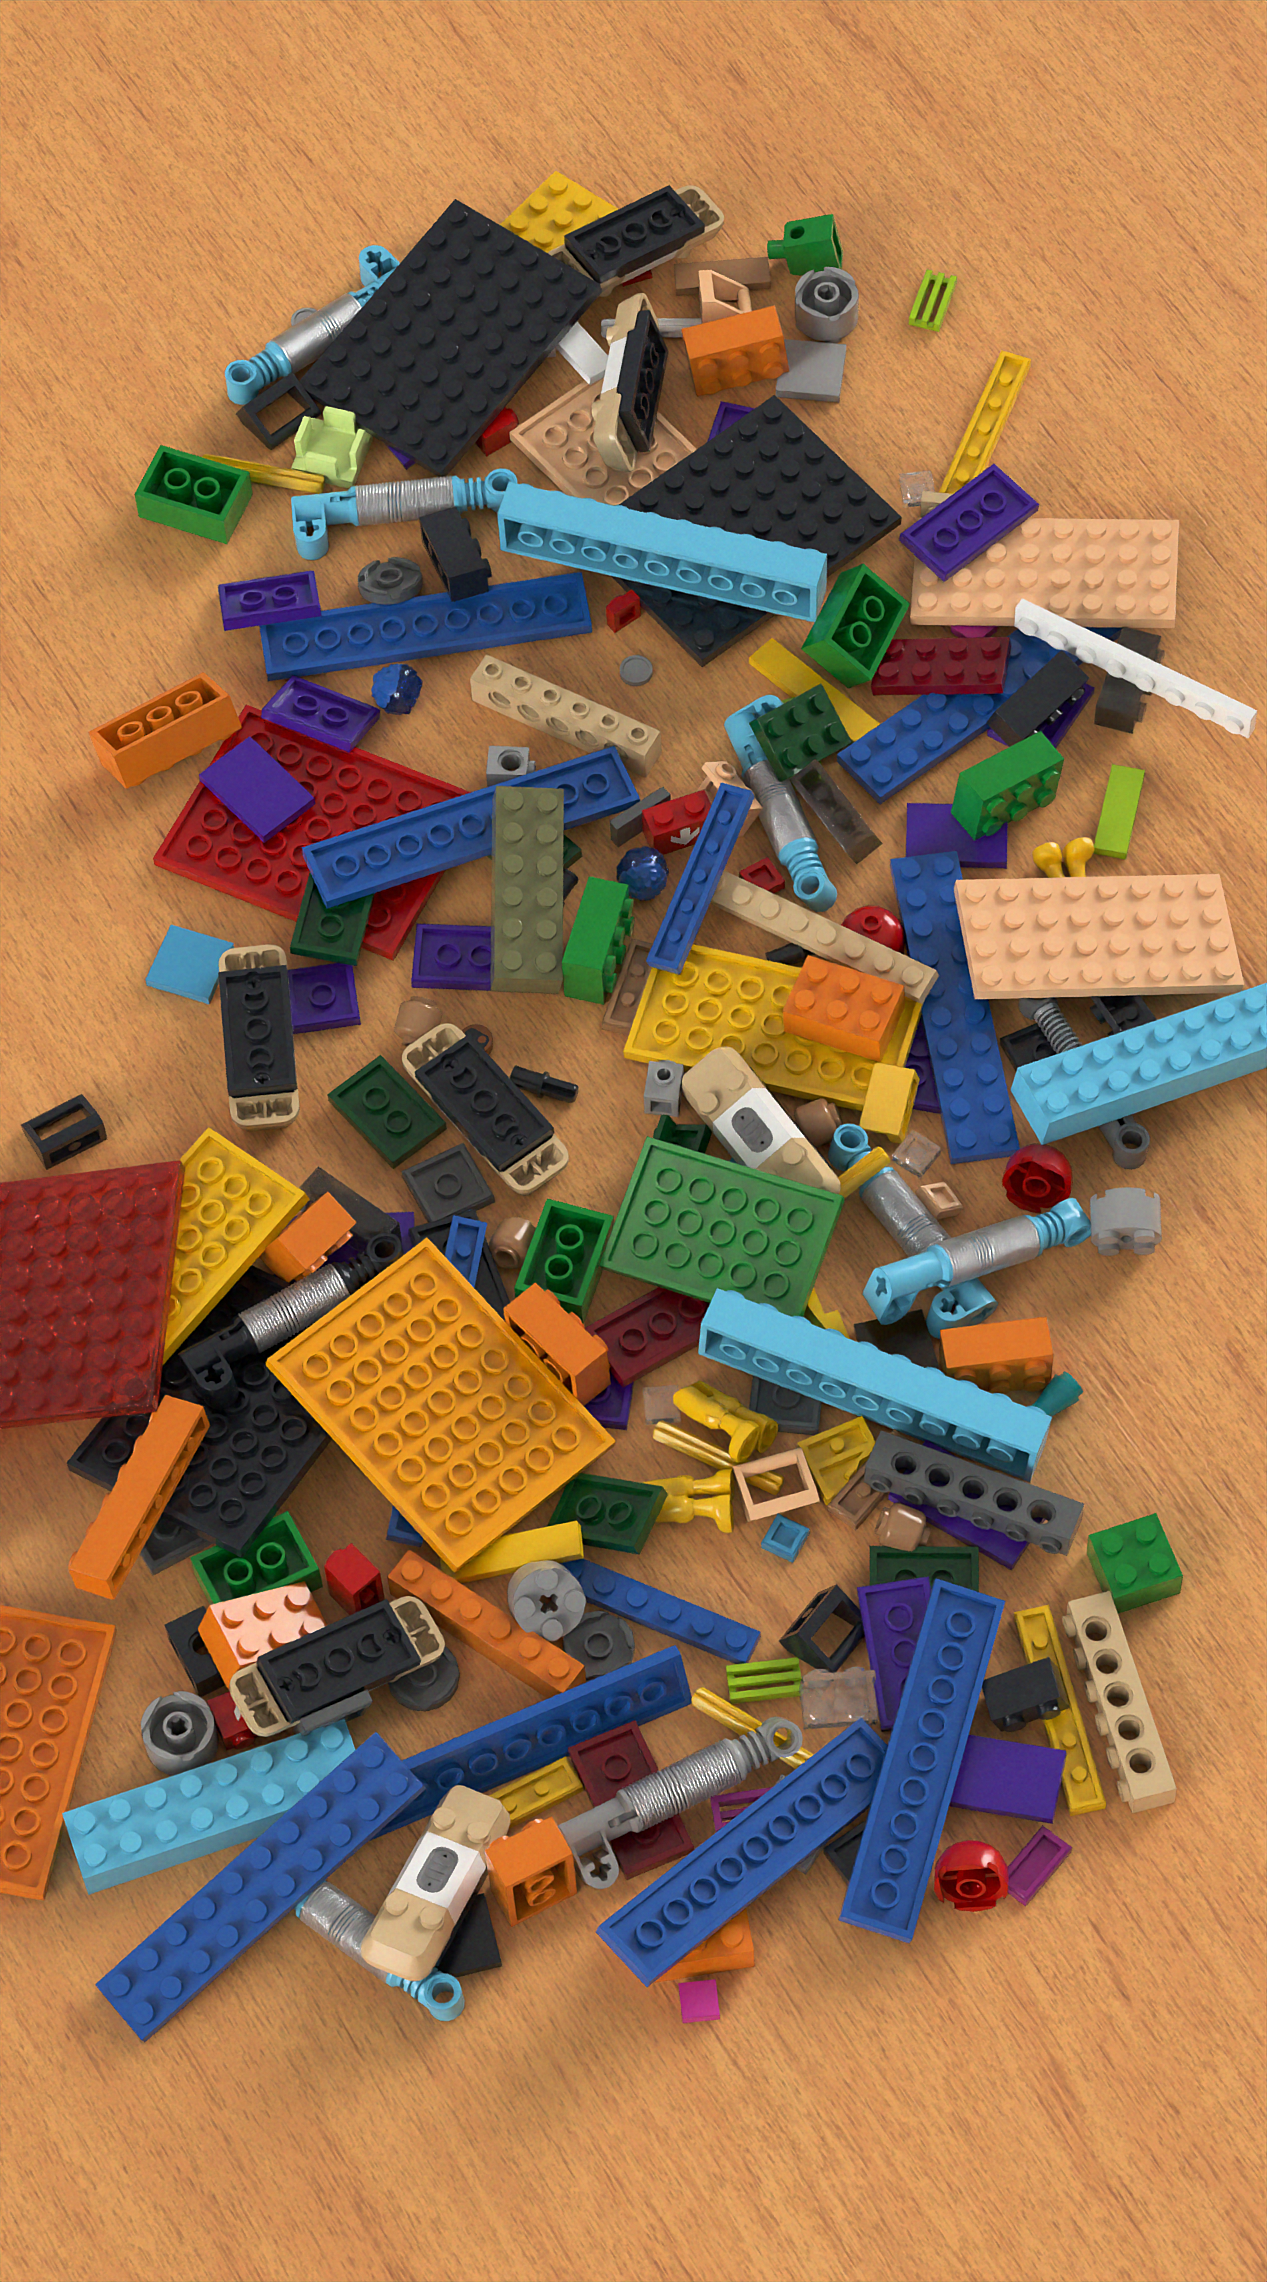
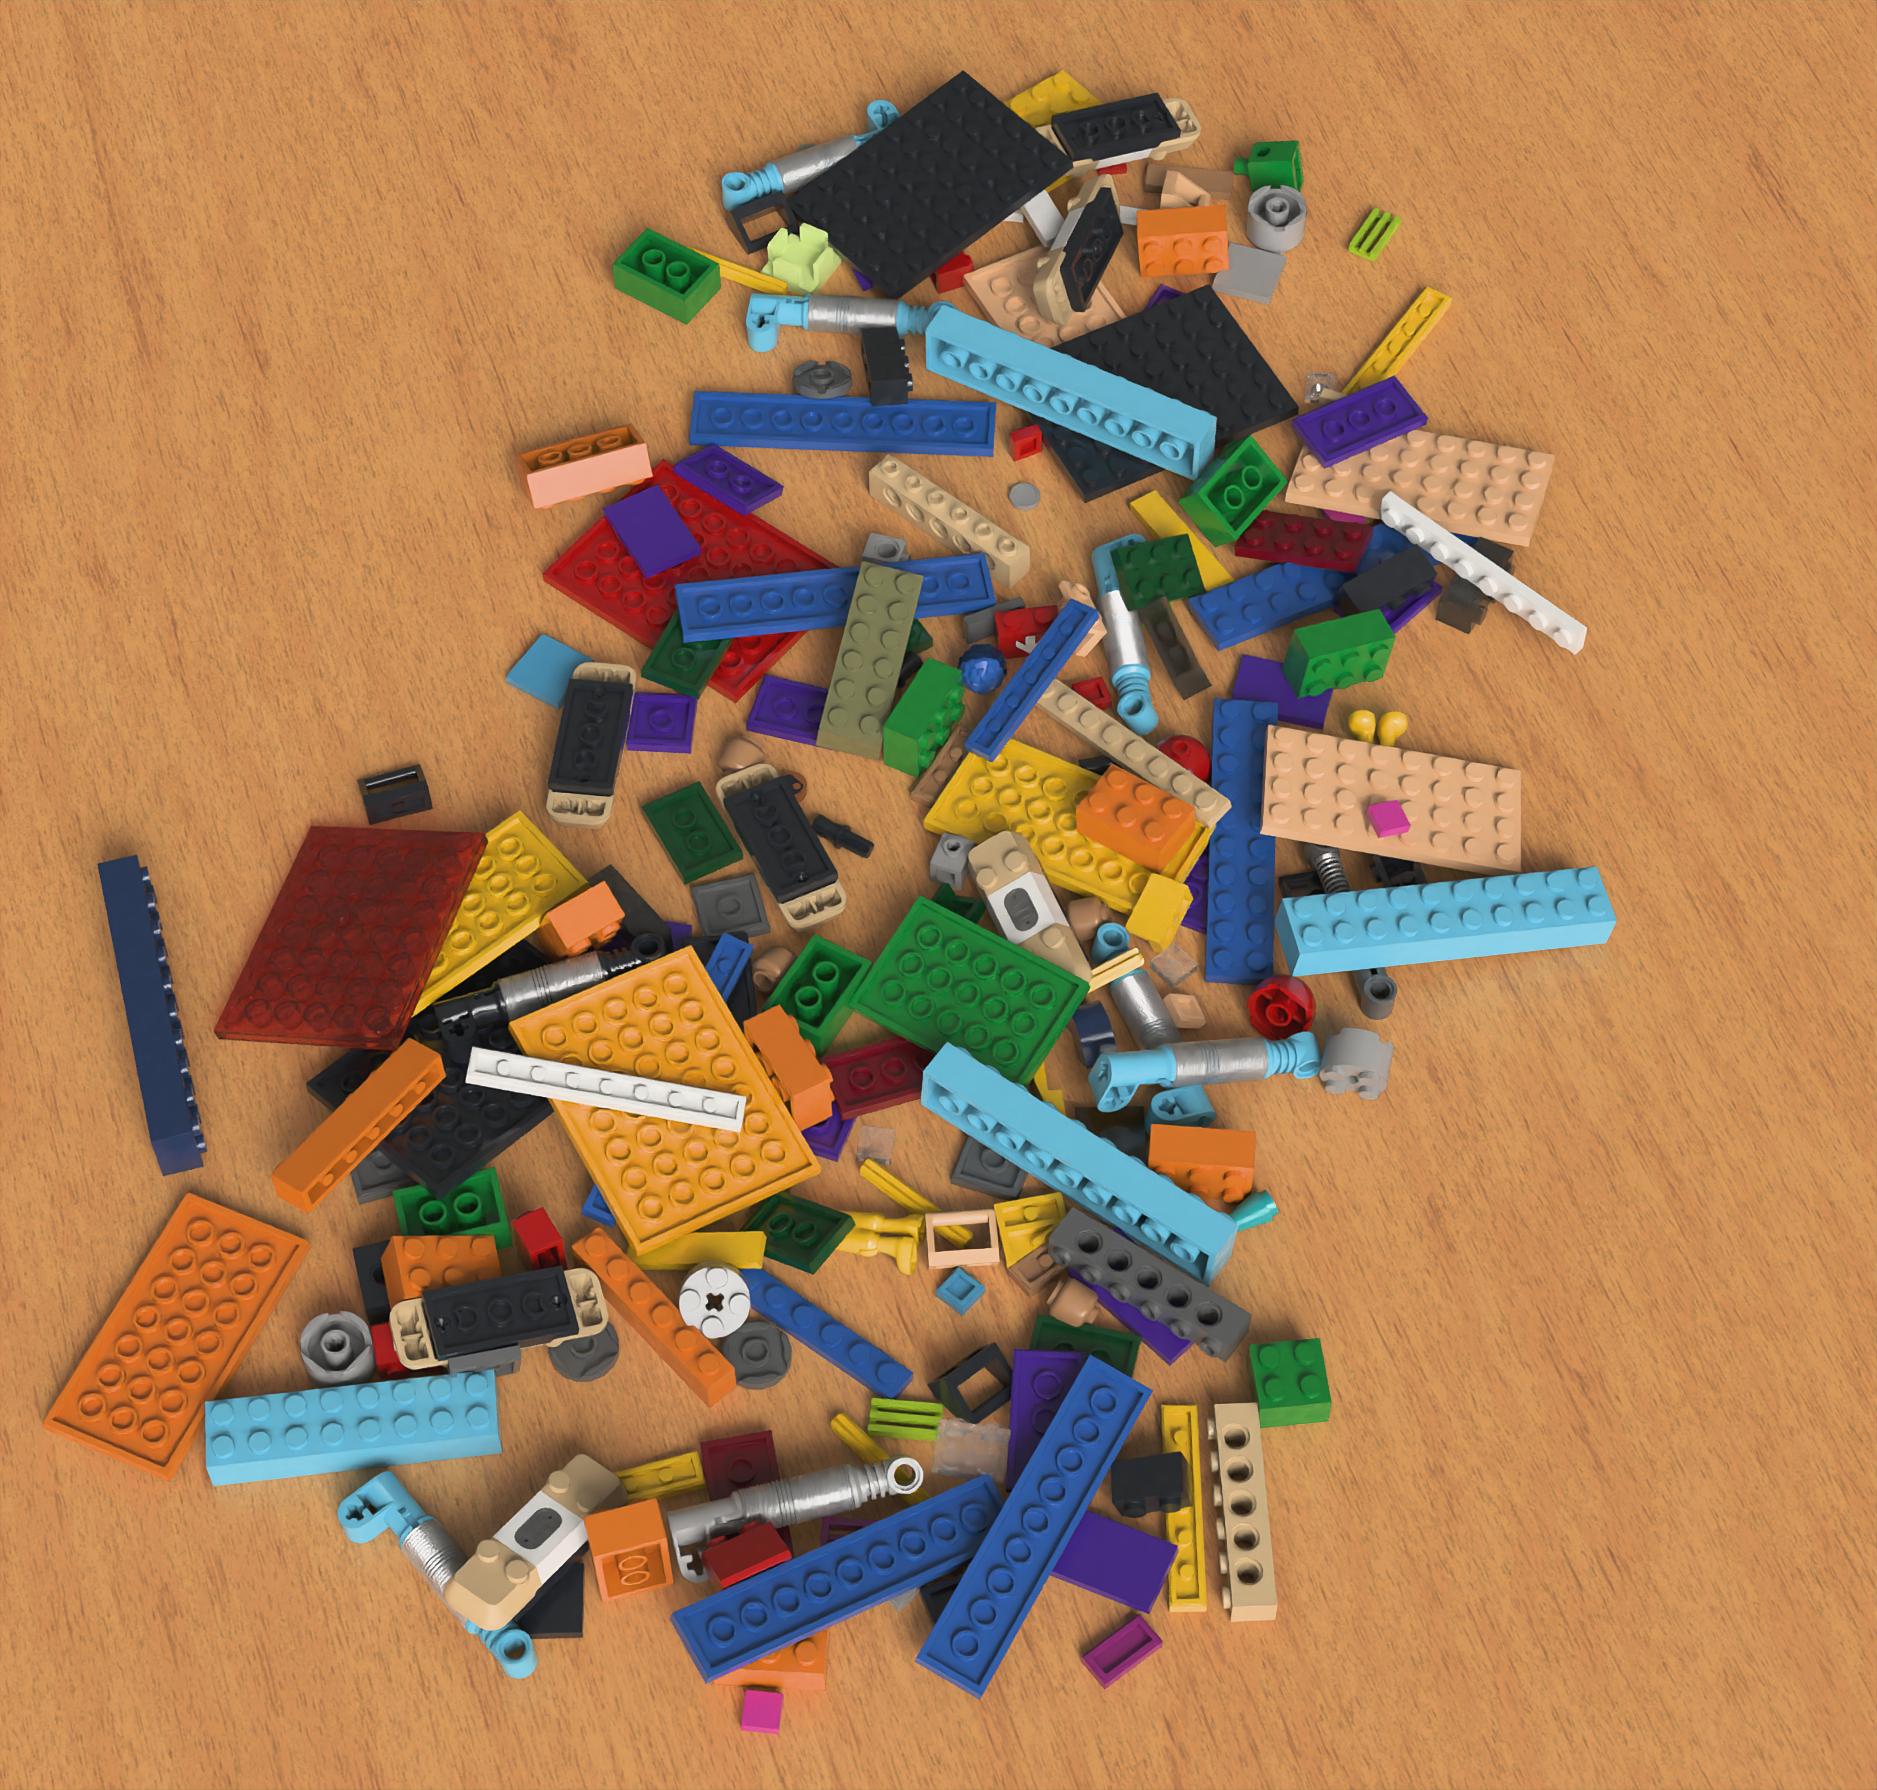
camera: 10 degrees right, 5 degrees down
(260, 1887) = (368, 1510): blue plate -> none
(269, 600) = (709, 376): dark purple tile -> none
(382, 1408) = (606, 1089): none -> white tile
(396, 688) = (801, 470): piece -> none
(545, 1731) = (648, 1427): blue plate -> none
(649, 1854) = (745, 1555): none -> red slope
(721, 1411) = (926, 1159): yellow piece -> none
(855, 1246) = (1091, 1032): none -> dark blue brick
(971, 1876) = (1055, 1647): red cylinder -> none
(1101, 958) = (1388, 819): none -> dark pink tile
(1119, 811) = (1439, 699): lime tile -> none

